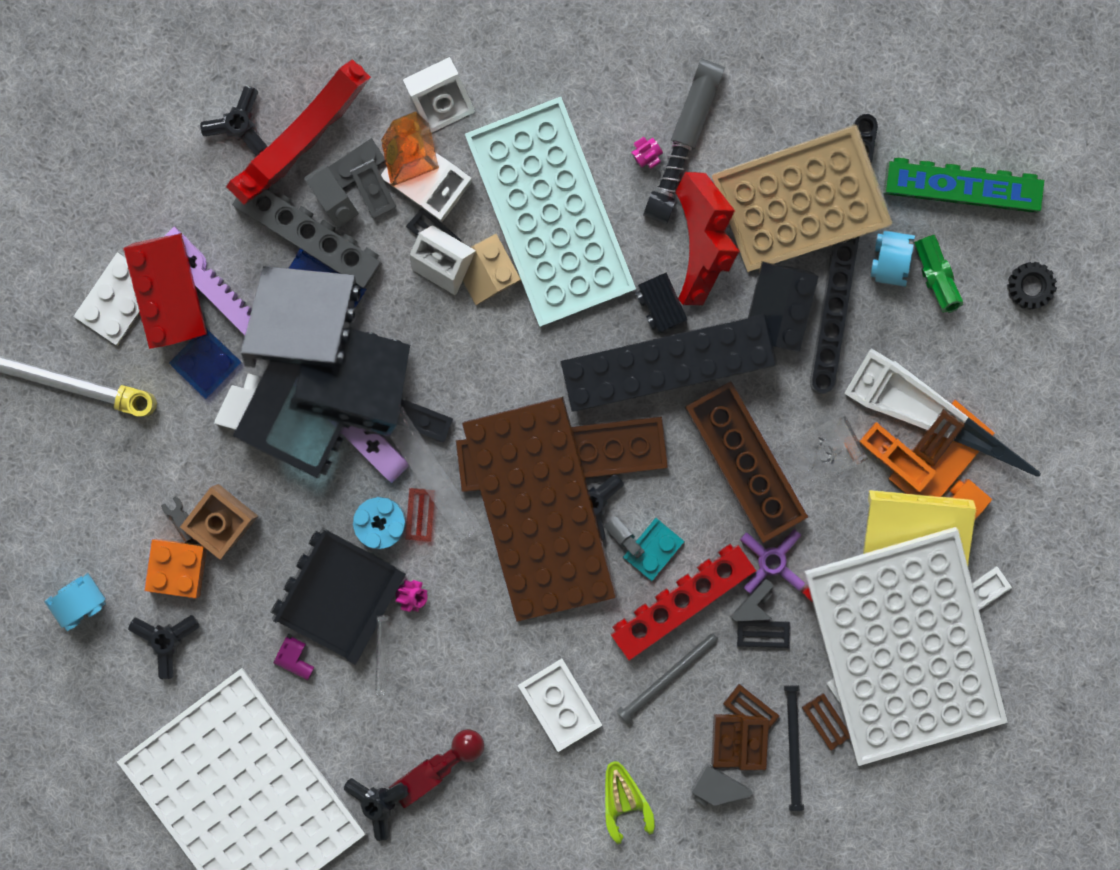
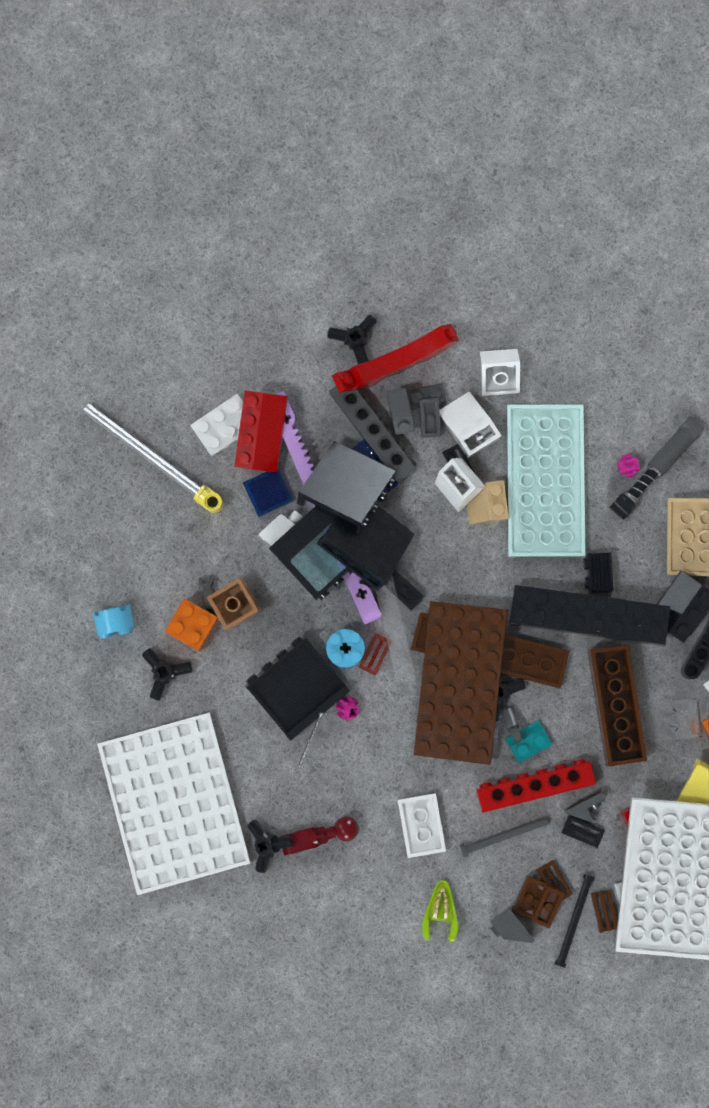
camera: 20 degrees right, 5 degrees down
(289, 657) = (245, 718): magenta piece -> none
(408, 148) = (465, 399): clear orange slope -> none
(709, 245) = (648, 546): red arch -> none
(763, 553) = (601, 786): medium lavender bar -> none

